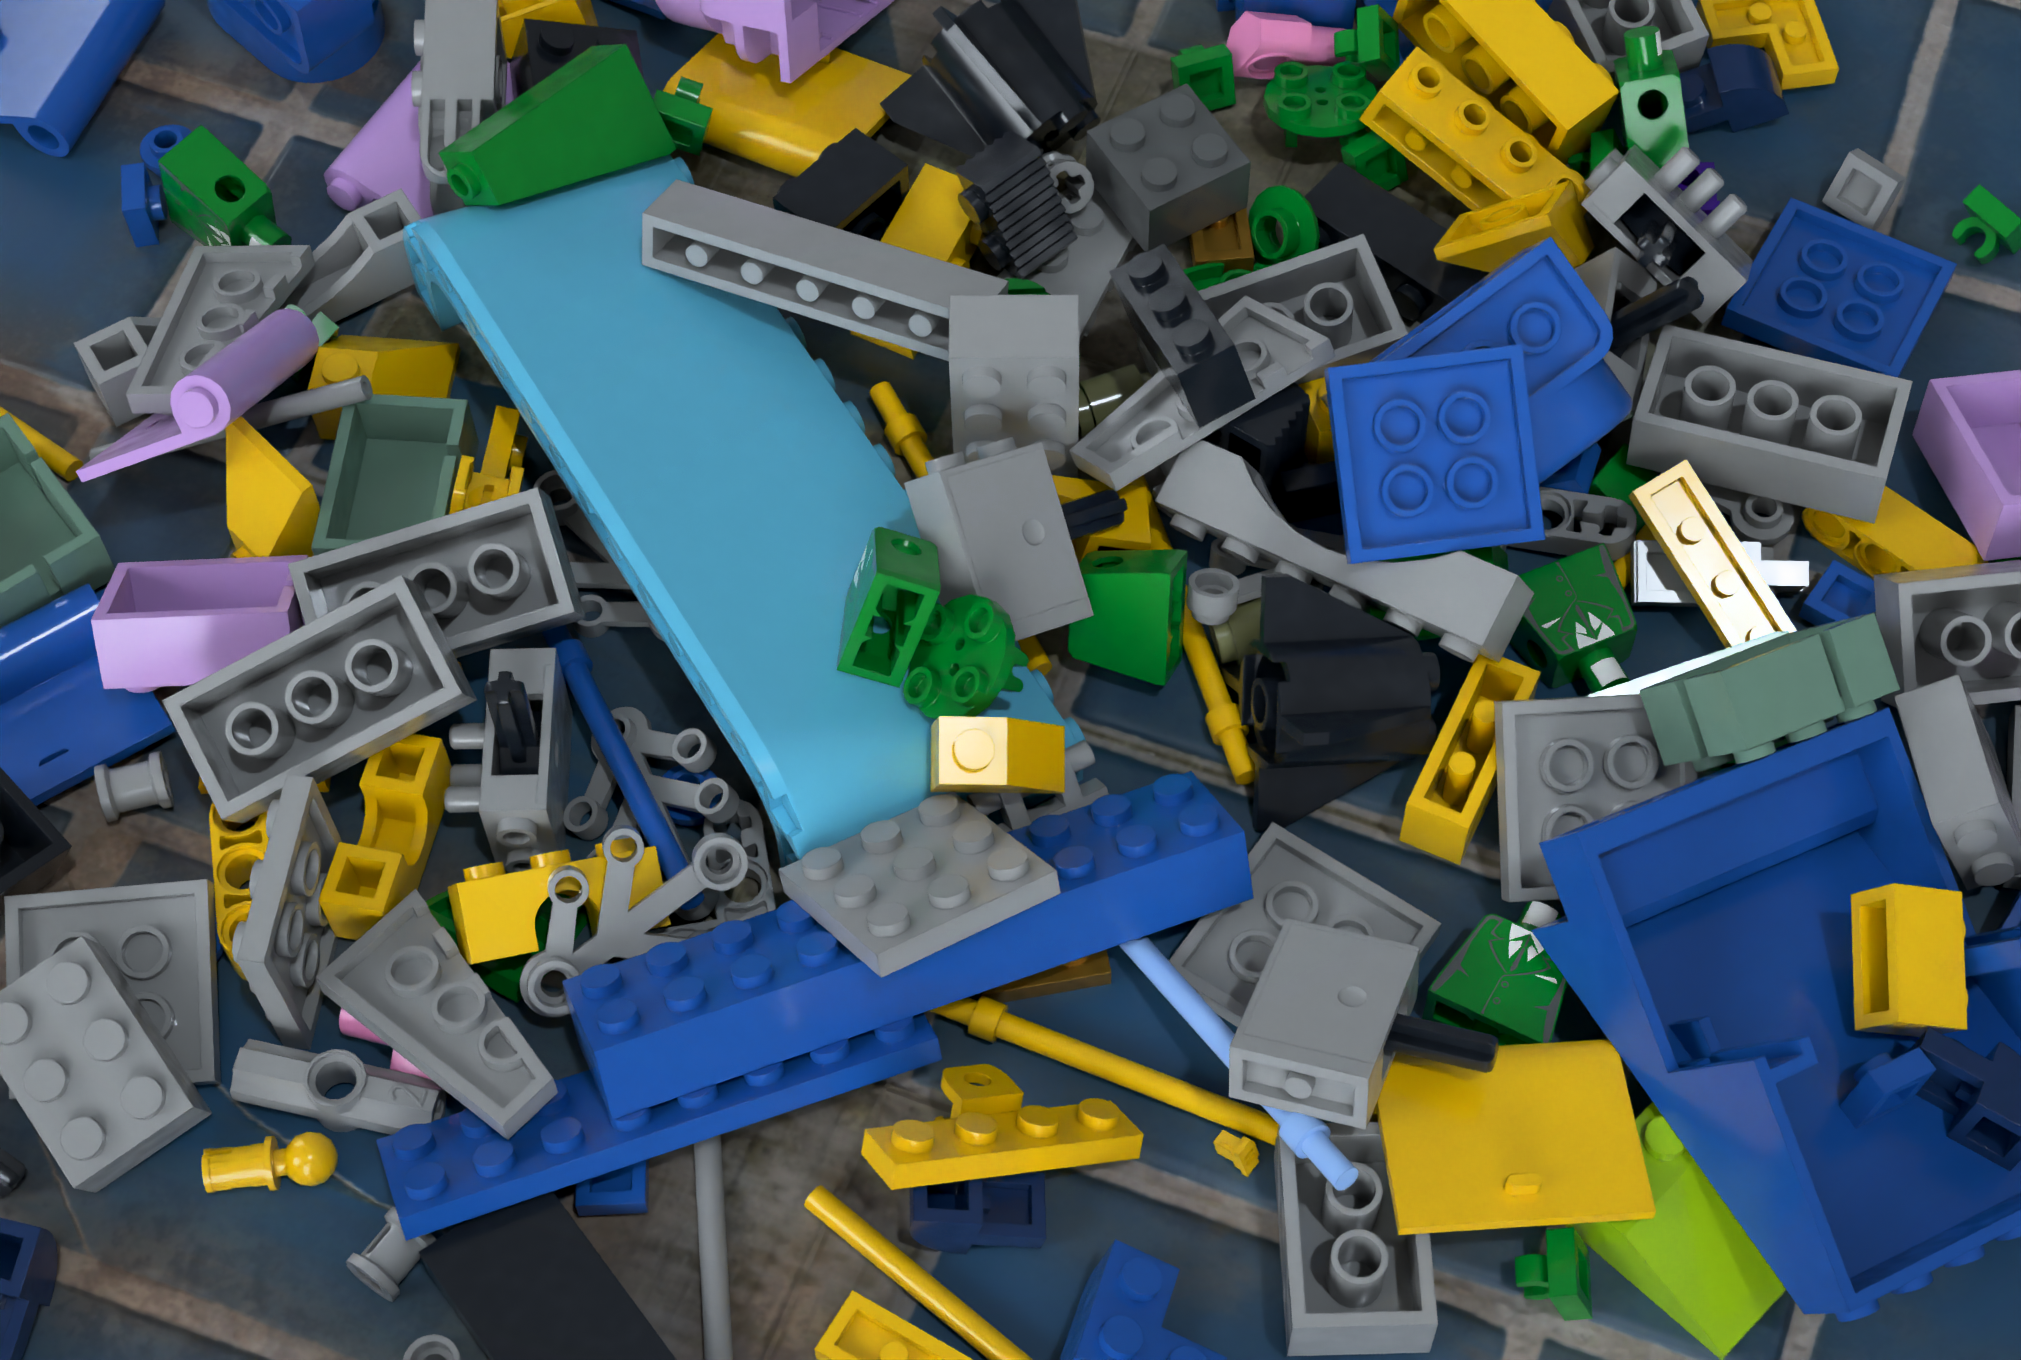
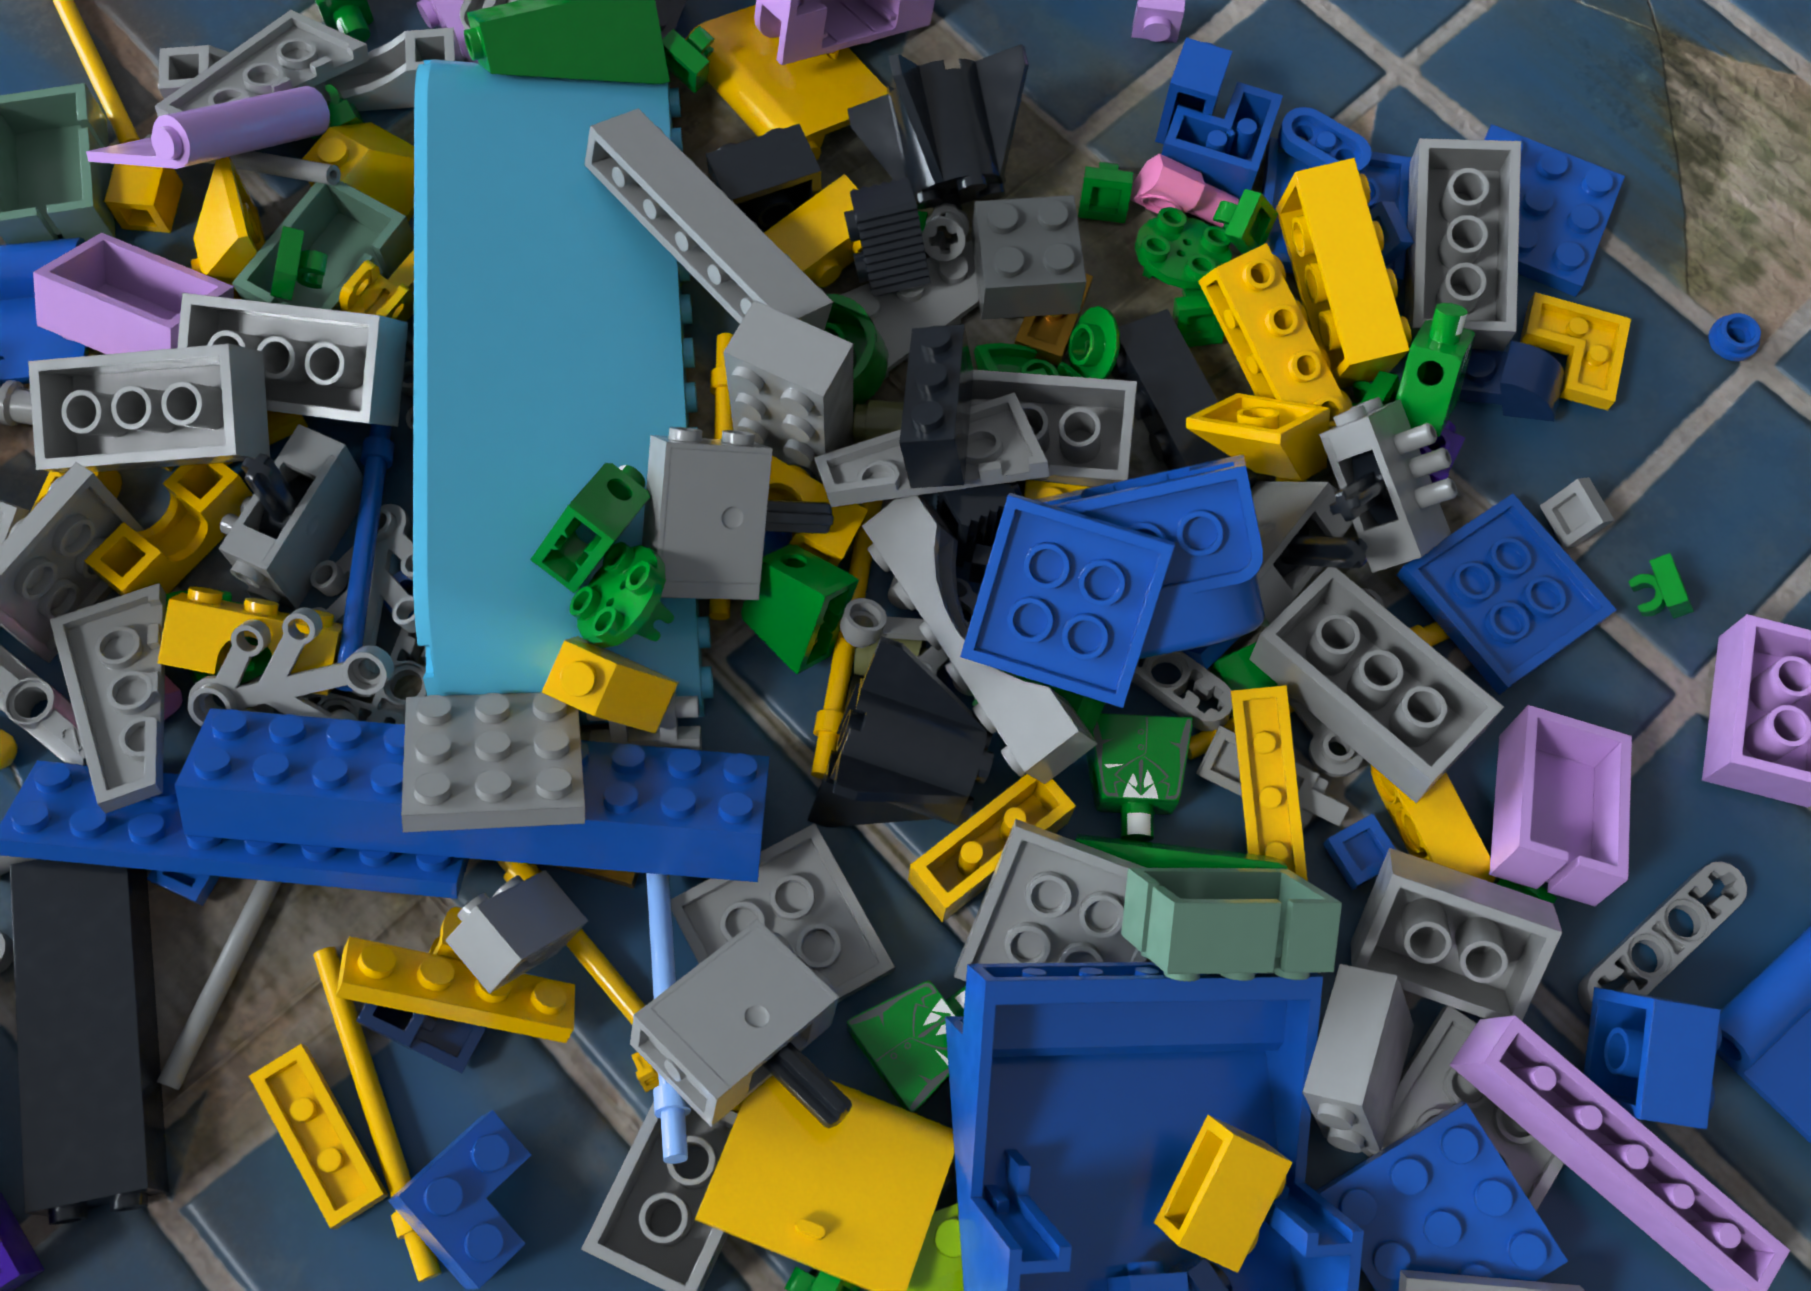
camera: 20 degrees right, 10 degrees up
(128, 513) = (144, 197): none -> yellow brick
(382, 493) = (295, 265): none -> green tile
(1028, 1053) = (514, 929): none -> light grey brick

